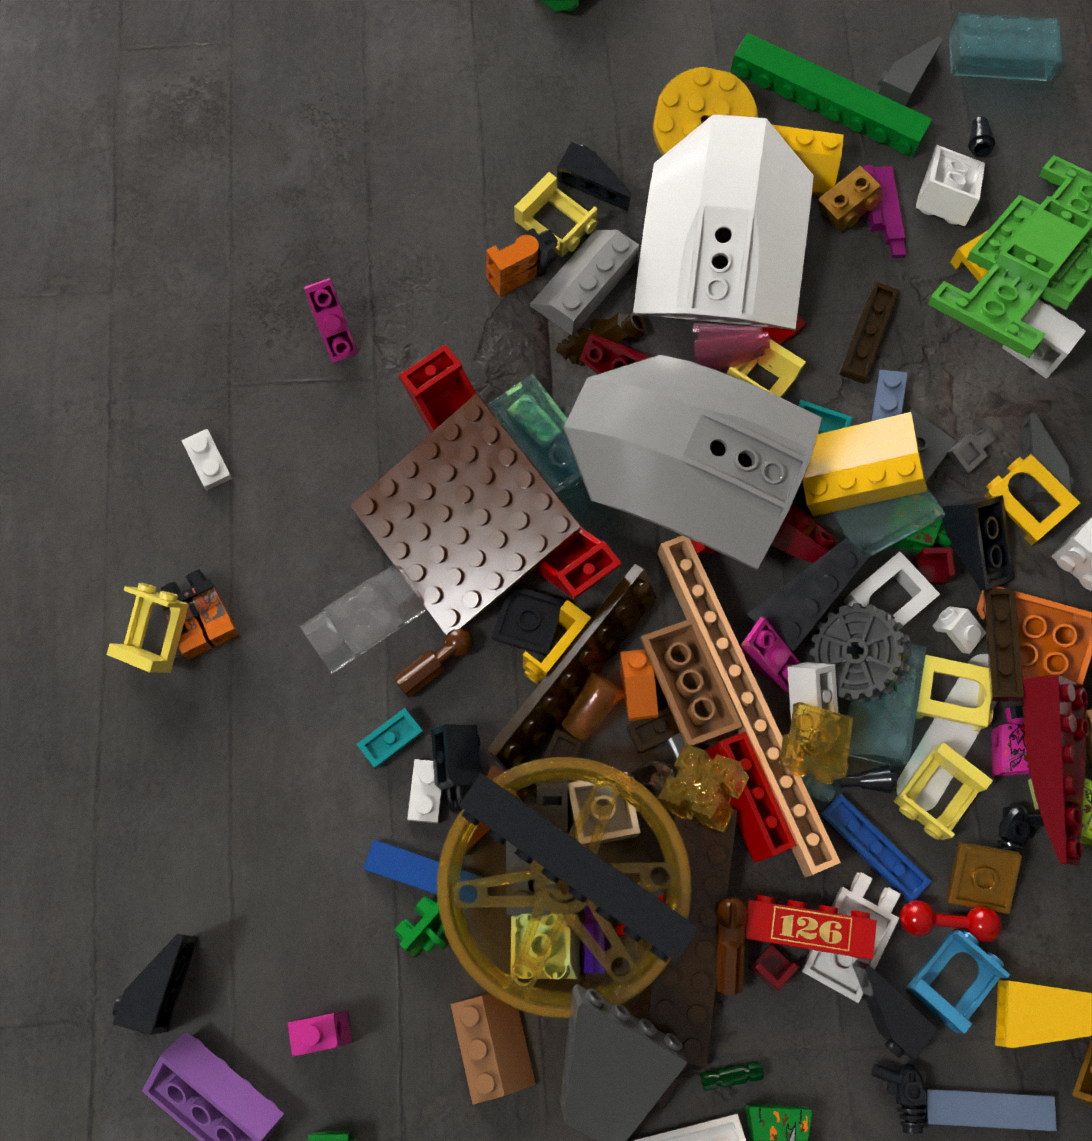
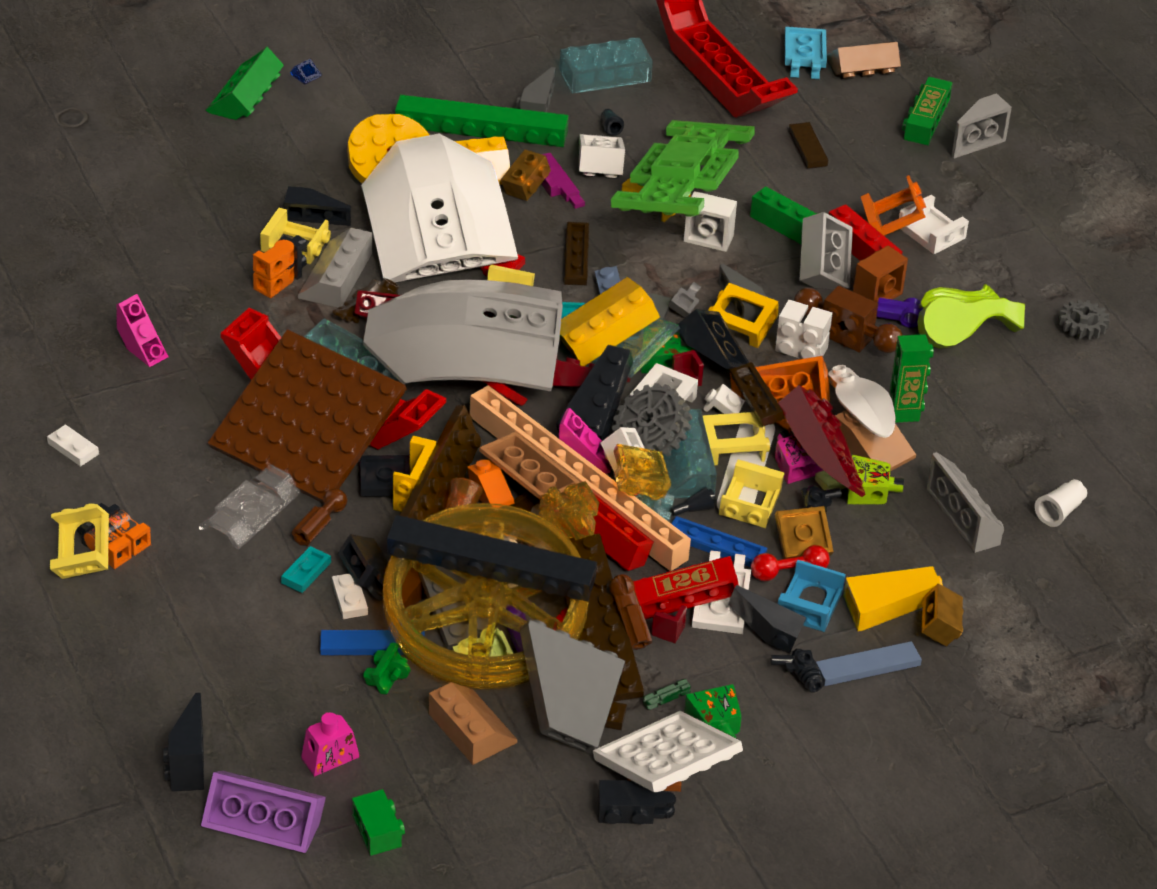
camera: 20 degrees left, 30 degrees down
(728, 345) = (472, 268): clear pink cone -> none

